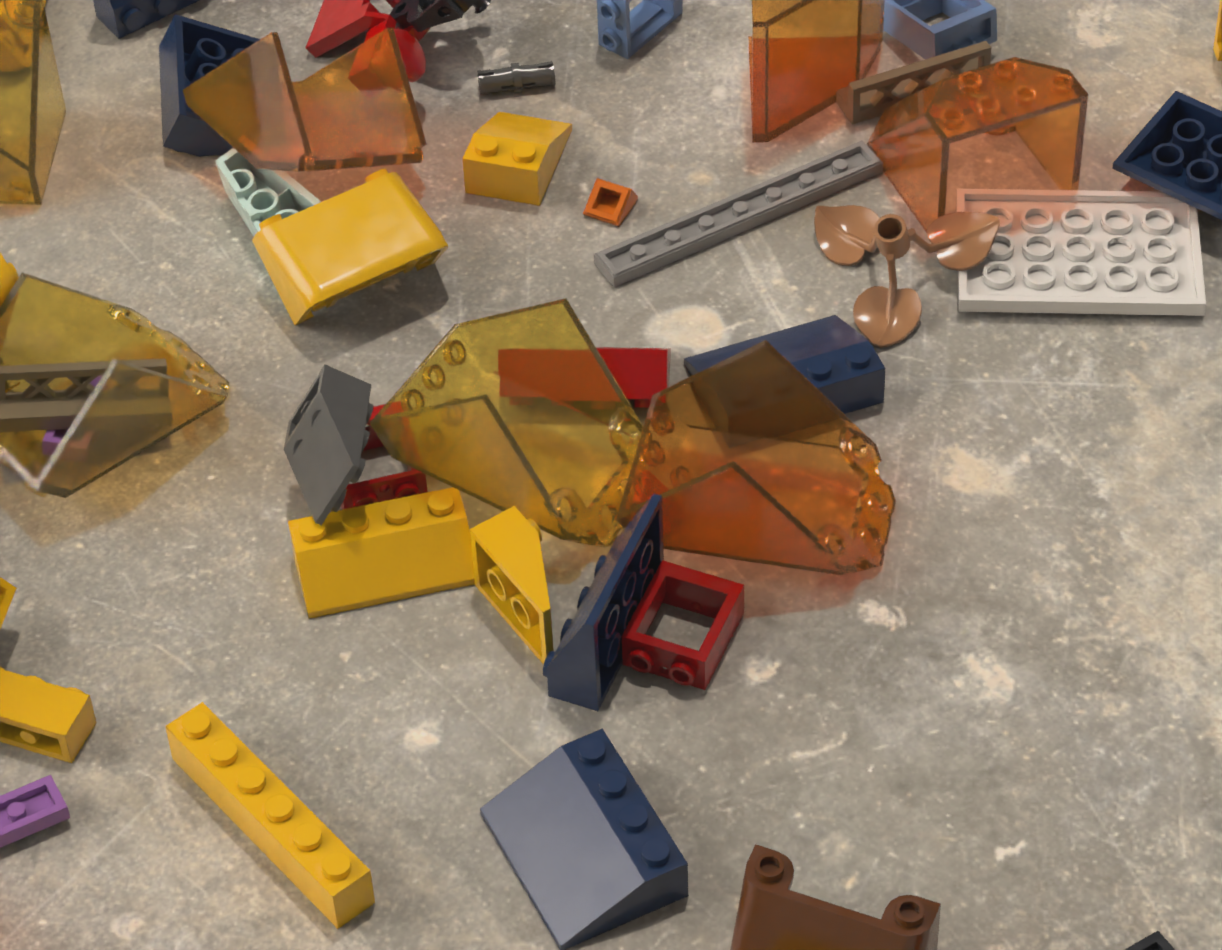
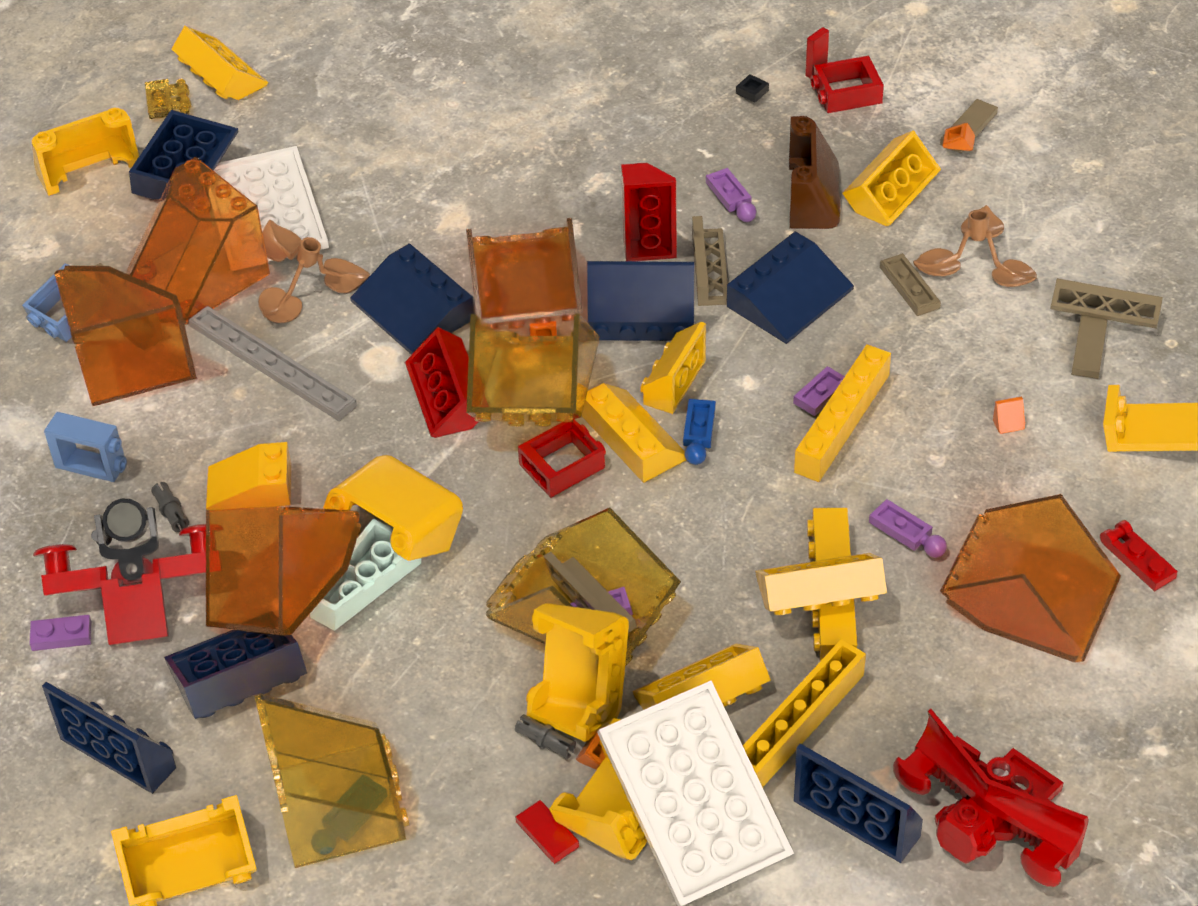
camera: 110 degrees left, 0 degrees up
(328, 439) = (597, 430): dark grey slope -> none
(337, 805) = (818, 391): none -> medium lavender plate
(344, 632) = (698, 429): none -> blue plate
(467, 628) = (675, 369): none -> yellow slope
(513, 576) = (634, 348): yellow slope -> none
(610, 202) = (282, 424): orange slope -> none
(717, 742) = (704, 266): none -> dark tan fence
(791, 636) = (648, 213): none -> red slope
(862, 838) = (732, 194): none -> medium lavender plate

